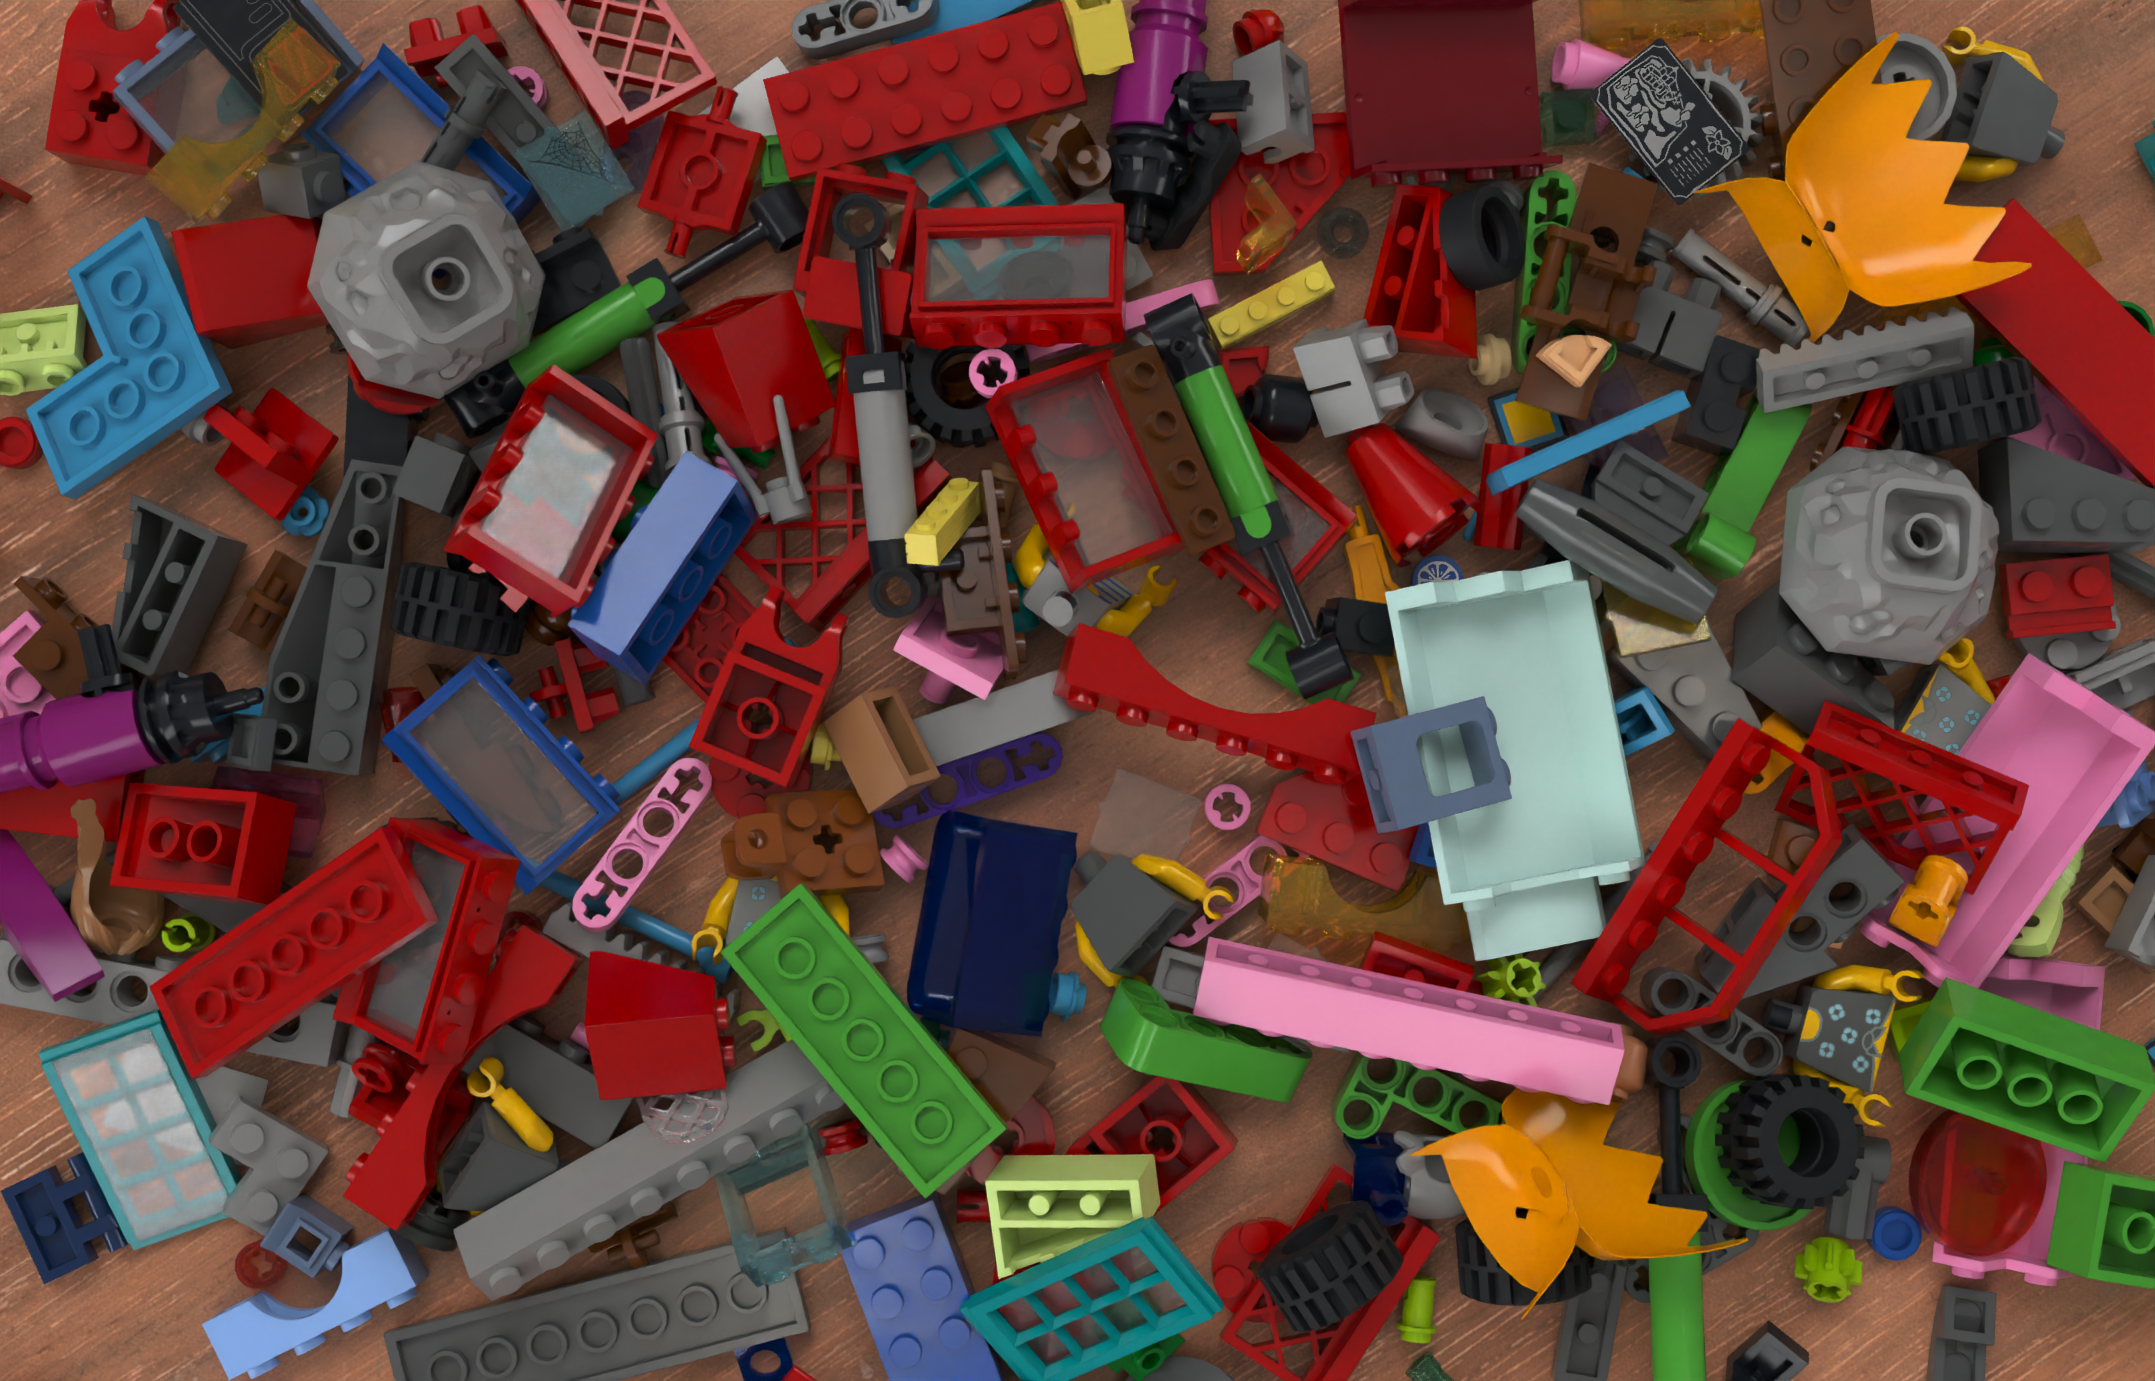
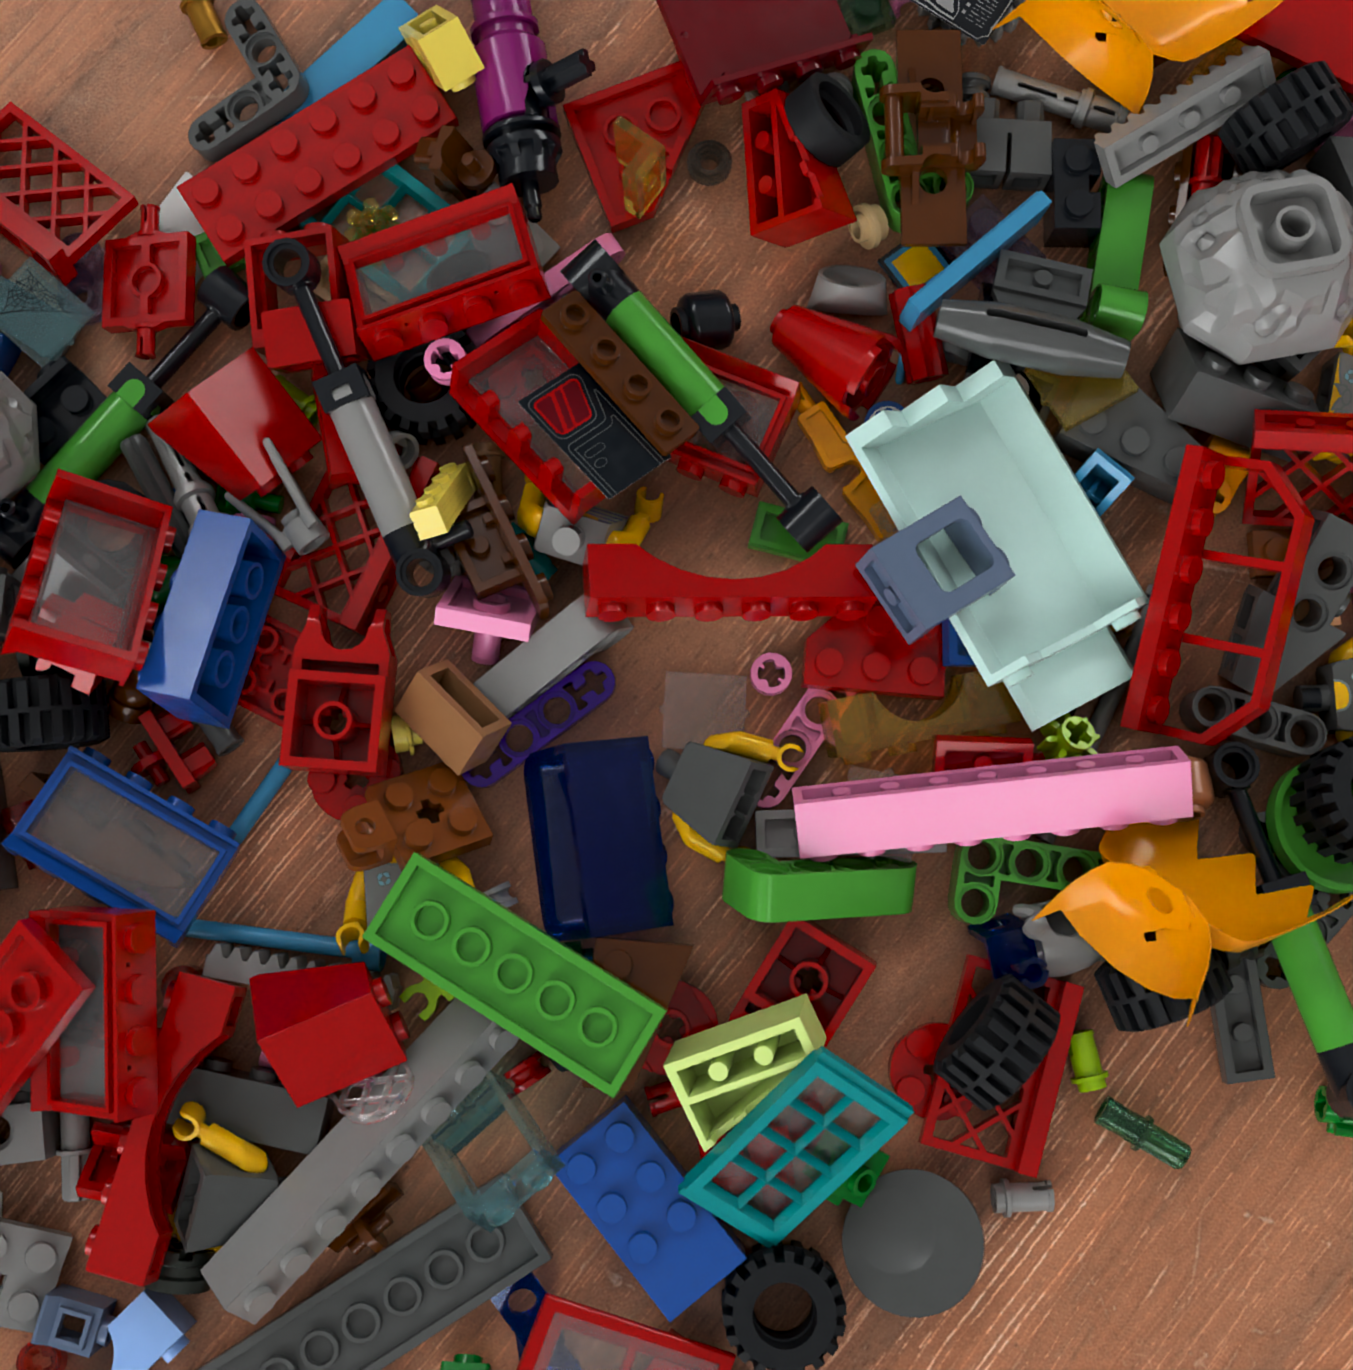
camera: 10 degrees left, 5 degrees down
(379, 1067) = (92, 1145): red bush -> none
(649, 848) = (262, 867): bright pink beam -> none
(903, 859) = (504, 810): bright pink bush -> none
(949, 179) = (370, 219): none -> clear yellow plant
(1066, 995) = (684, 883): dark azure plate -> none
(1122, 504) = (592, 431): none -> black sticker
(1216, 153) = (580, 123): black piece -> none
(1244, 366) = (664, 295): red tile -> none
(1257, 30) = (584, 23): red plate -> none
(1271, 306) = (670, 239): light yellow piece -> none
(1280, 103) = (620, 71): light grey hinge -> none
(1349, 375) = (752, 251): light grey hips -> none
(1359, 625) = (836, 478): black bracket -> none
(1574, 356) = (939, 190): light nougat tile -> none

